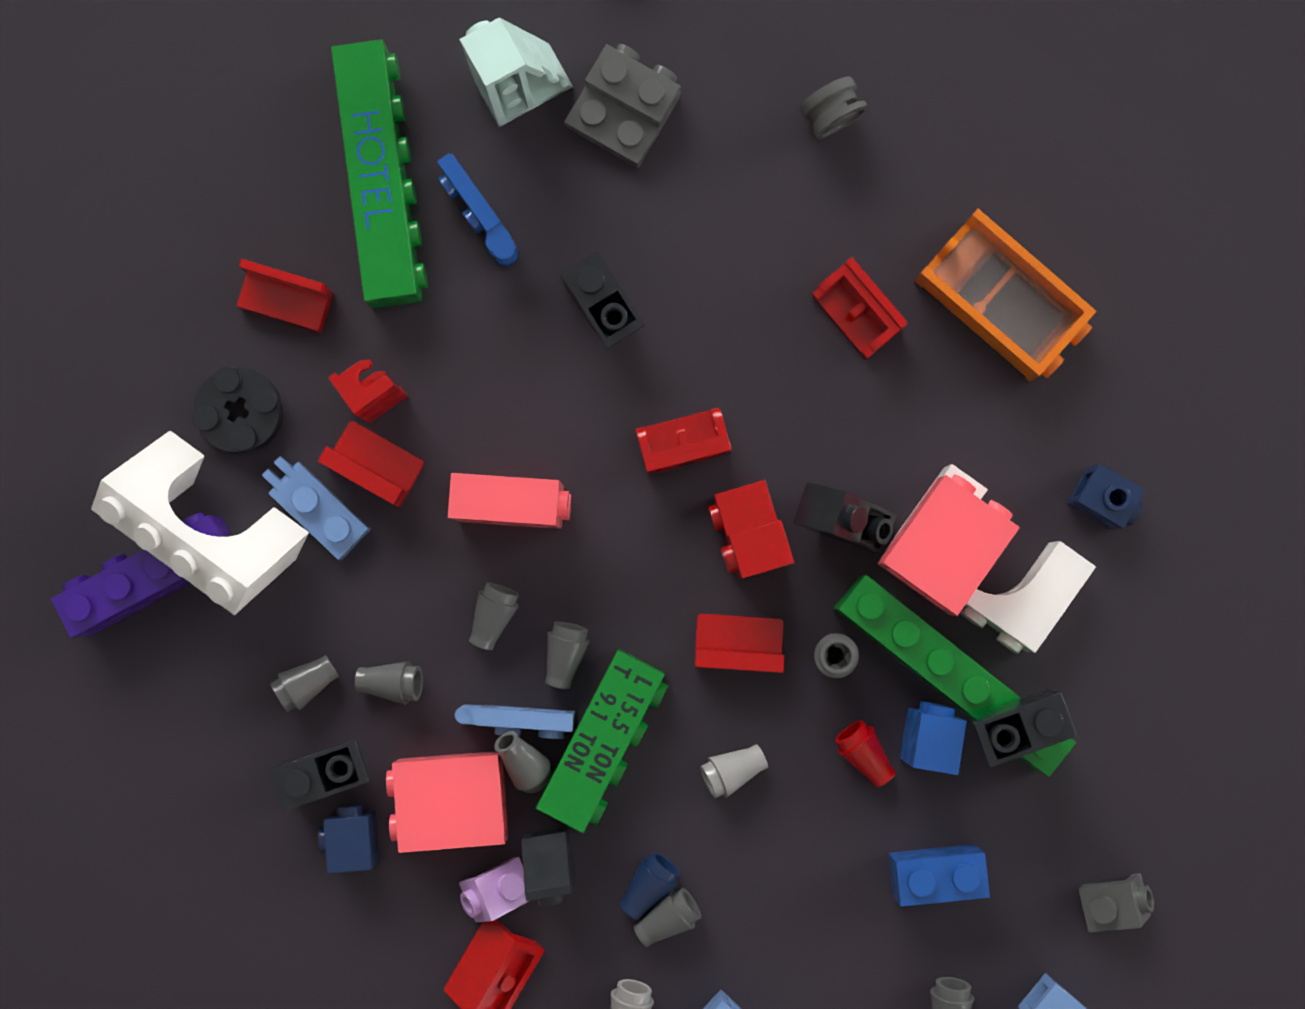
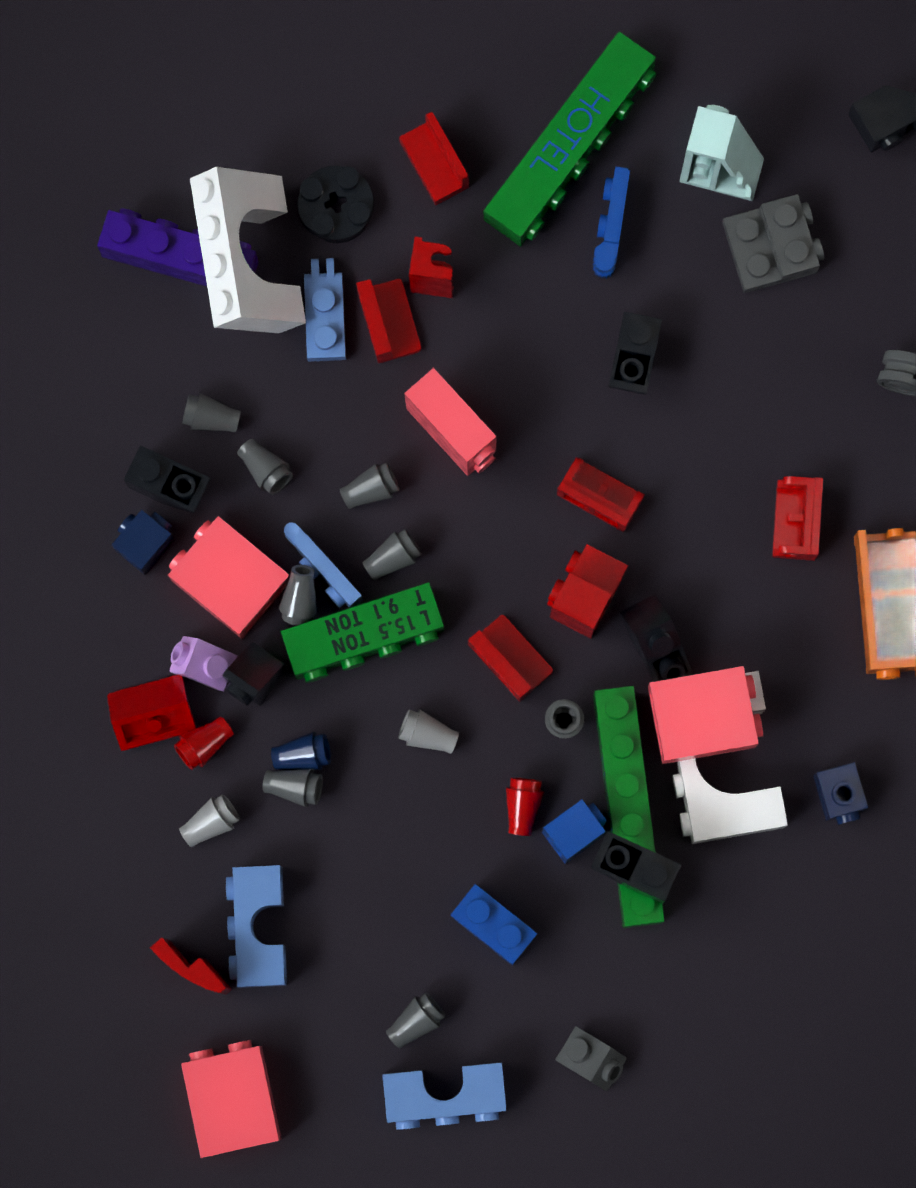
camera: 45 degrees right, 5 degrees down
(560, 956) = (203, 742): none -> red cone

